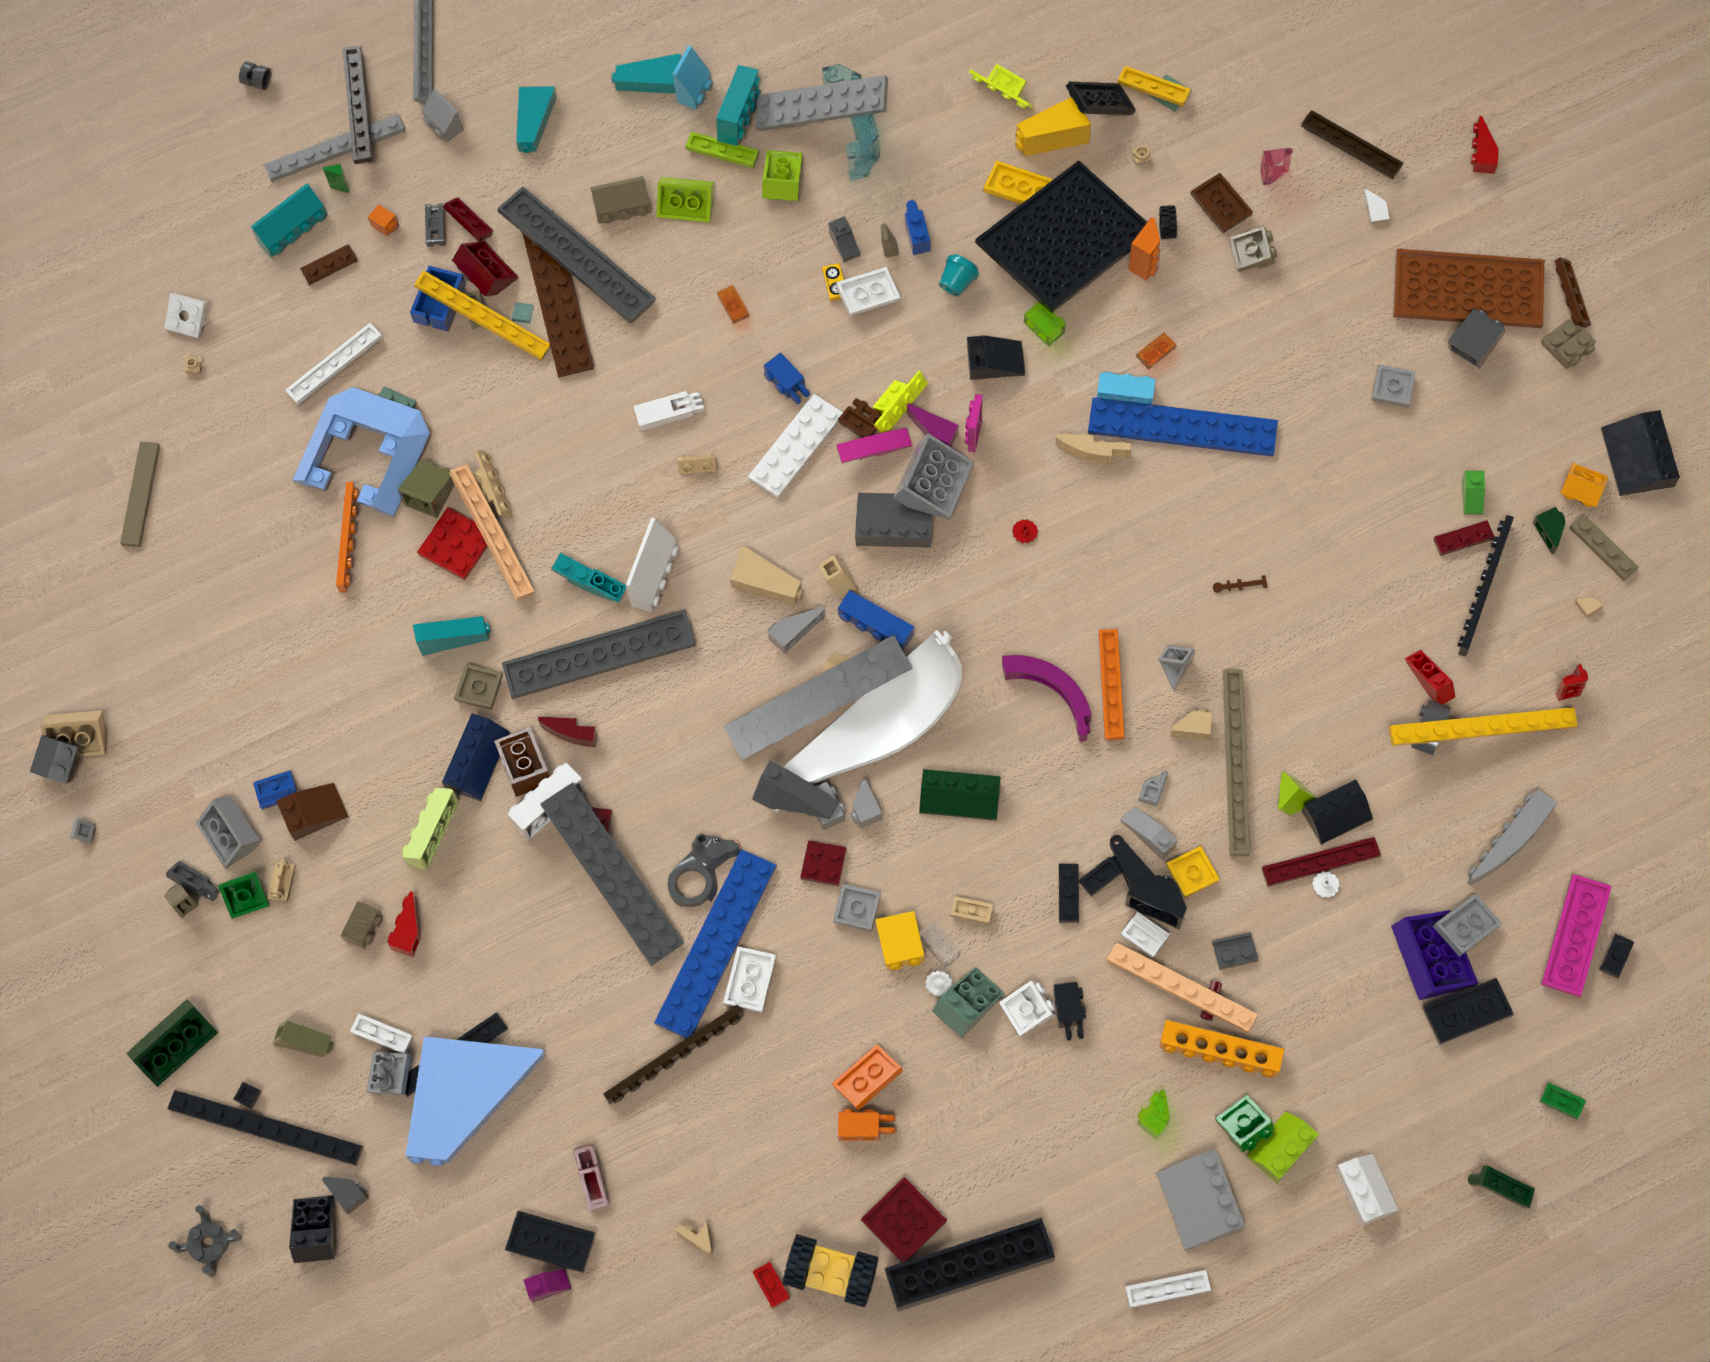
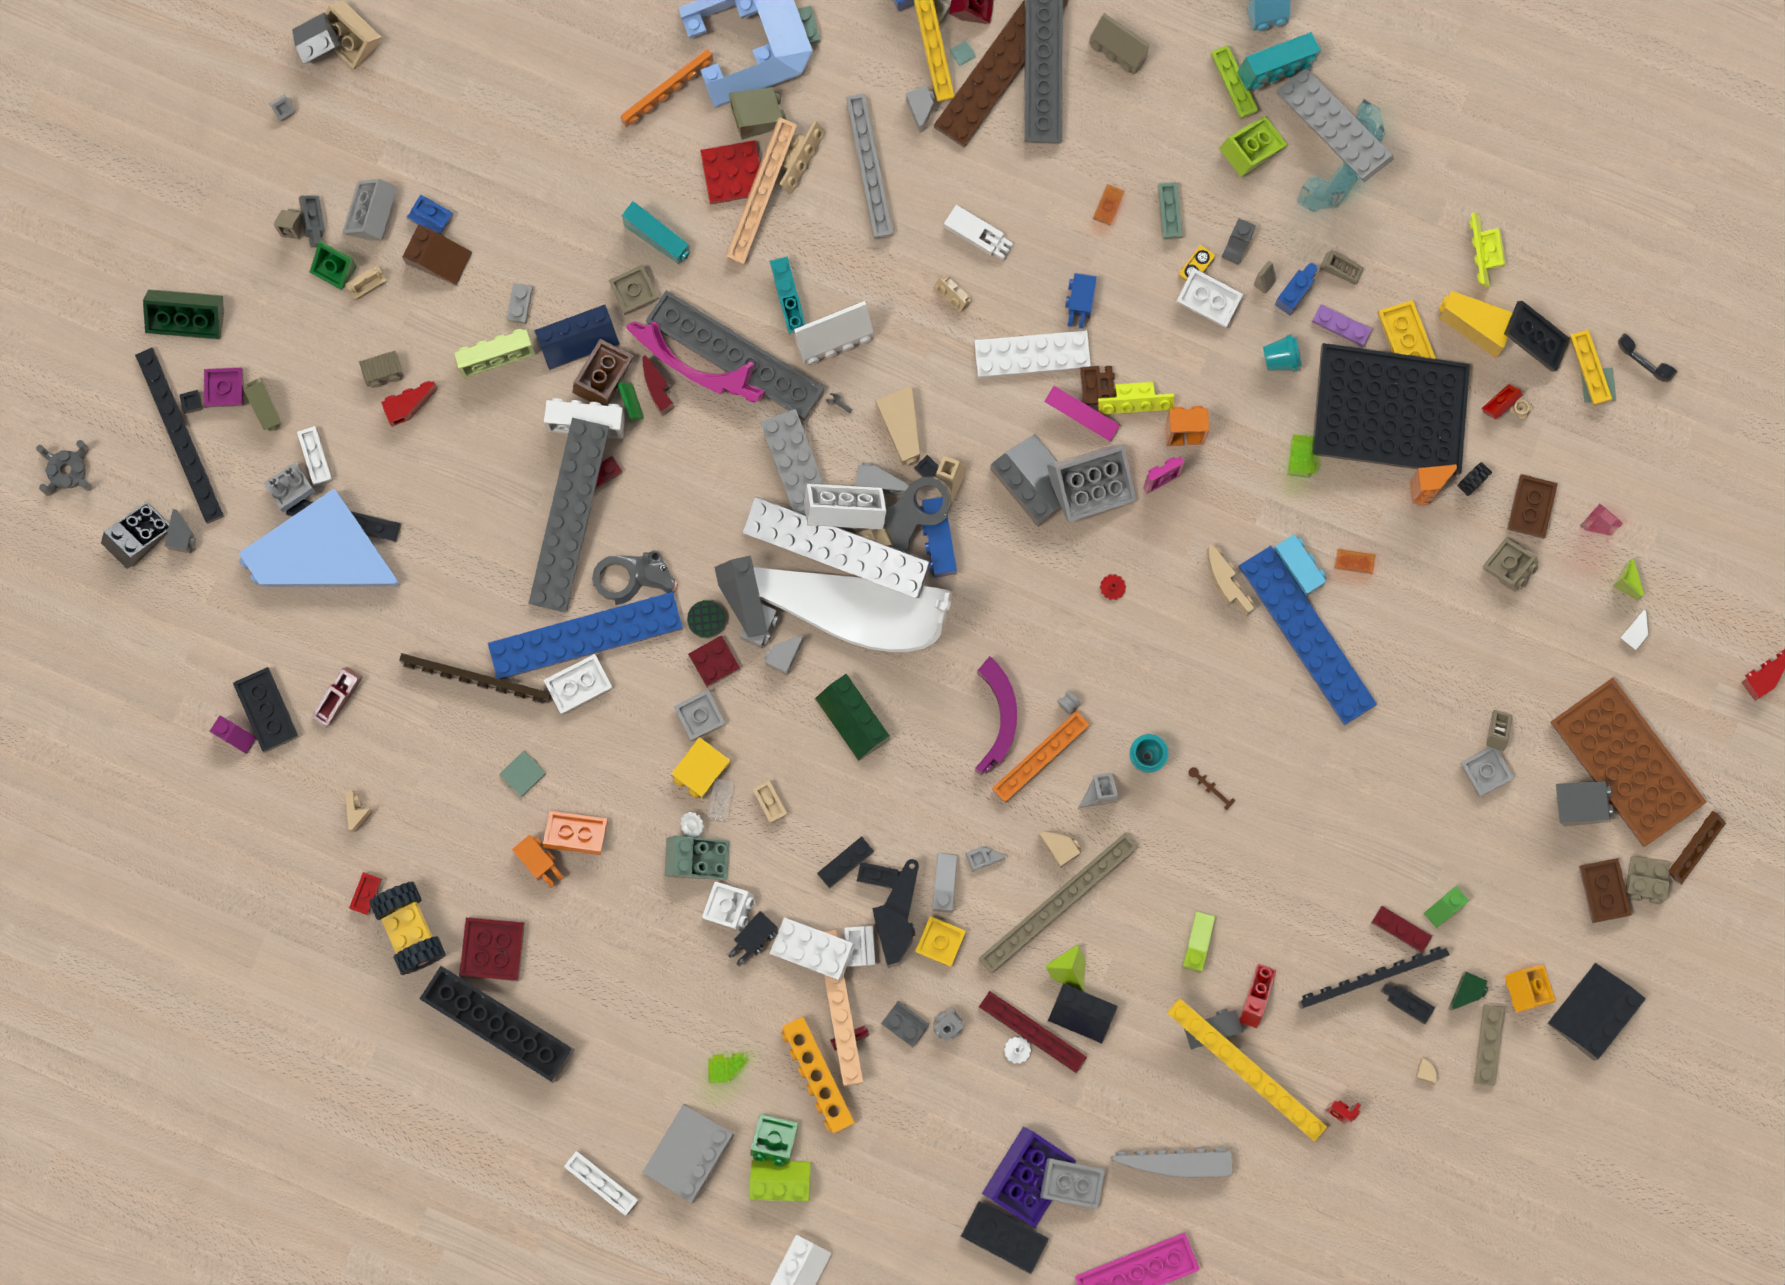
camera: 45 degrees right, 10 degrees up
(260, 1060) = (223, 387): none -> magenta plate
(408, 780) = (519, 303): none -> light grey plate
(534, 372) = (920, 105): none -> light grey slope
(545, 443) = (869, 166): none -> light grey plate
(557, 758) = (630, 401): none -> green slope
(619, 669) = (735, 381): none -> dark pink slope
(685, 199) = (1165, 90): lime slope -> none
(701, 609) = (837, 402): none -> dark grey hand
(726, 677) = (791, 456): none -> light grey plate
(777, 267) = (1170, 210): none -> sand green plate
(782, 1082) = (522, 773): none -> sand green piece
(784, 842) = (706, 619): none -> tile
(793, 664) = (844, 506): none -> white brick
(815, 587) = (926, 467): none -> black plate
(838, 627) = (906, 514): none -> dark grey animal
(918, 195) = (1332, 255): none -> dark tan slope
(933, 424) = (1138, 449): magenta slope -> none
(955, 374) = (1192, 421): none -> orange piece
(970, 222) = (1341, 325): none -> medium lavender plate
(994, 357) = (1238, 442): black slope -> none
(1087, 630) = (1069, 702): none -> light grey wheel
(1117, 970) = (812, 949): none -> white plate
(1126, 161) = (1502, 401): none -> red plate
(1180, 596) = (1152, 745): none -> teal piece
(1200, 44) = (1663, 372): none -> black piece
(1264, 917) = (948, 1024): none -> light grey brick
(1335, 182) = (1629, 581): none -> lime slope
(1352, 144) = (1678, 566): dark brown plate -> none
(1354, 687) = (1198, 942): none -> lime slope
(1373, 354) = (1499, 731): none -> dark tan slope
(1525, 576) = (1408, 1003): none -> black hinge
(1553, 377) = (1605, 890): none -> reddish brown plate

